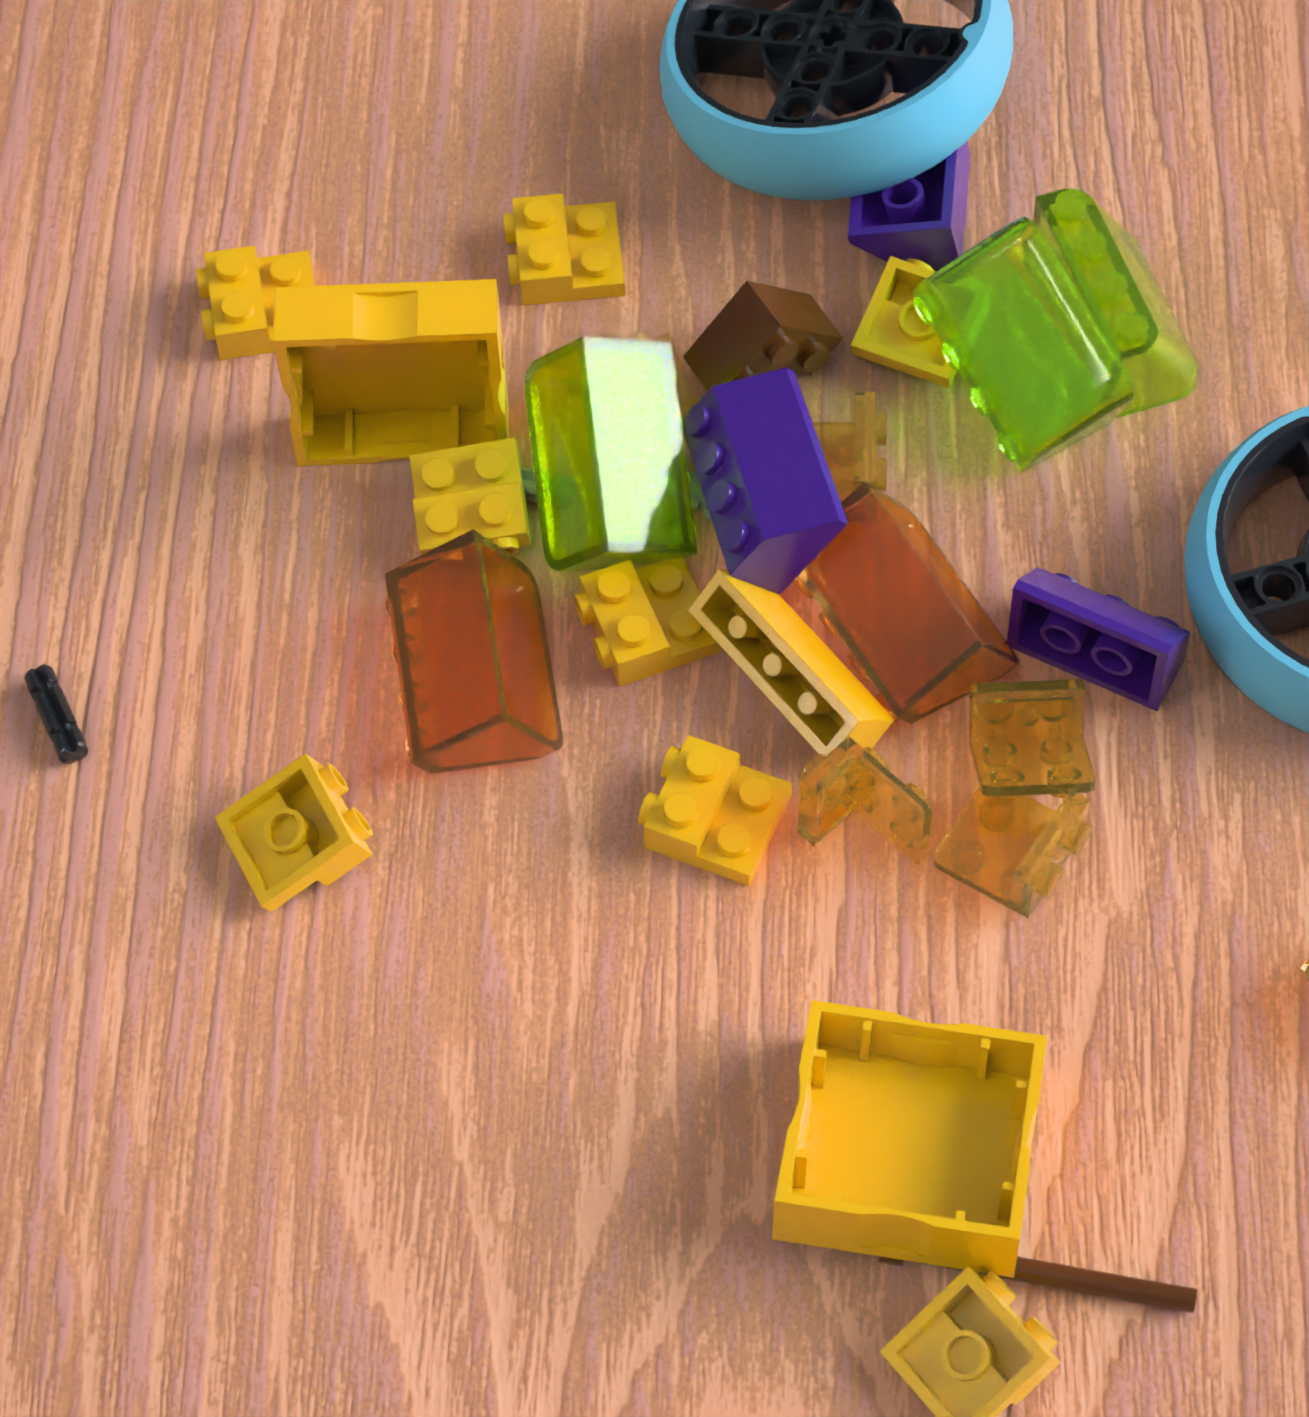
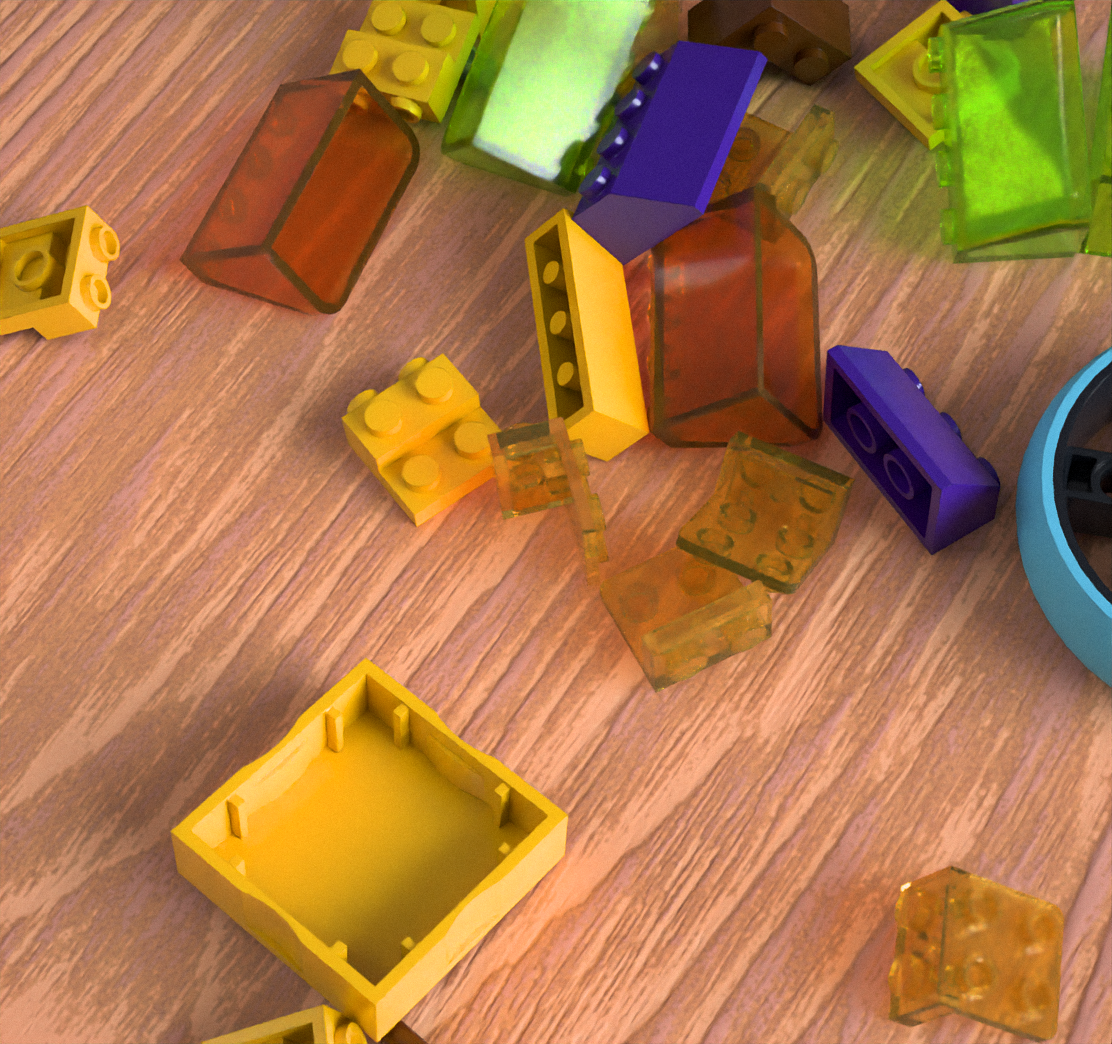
camera: 35 degrees right, 0 degrees up
(643, 618) = (483, 230): yellow plate -> none

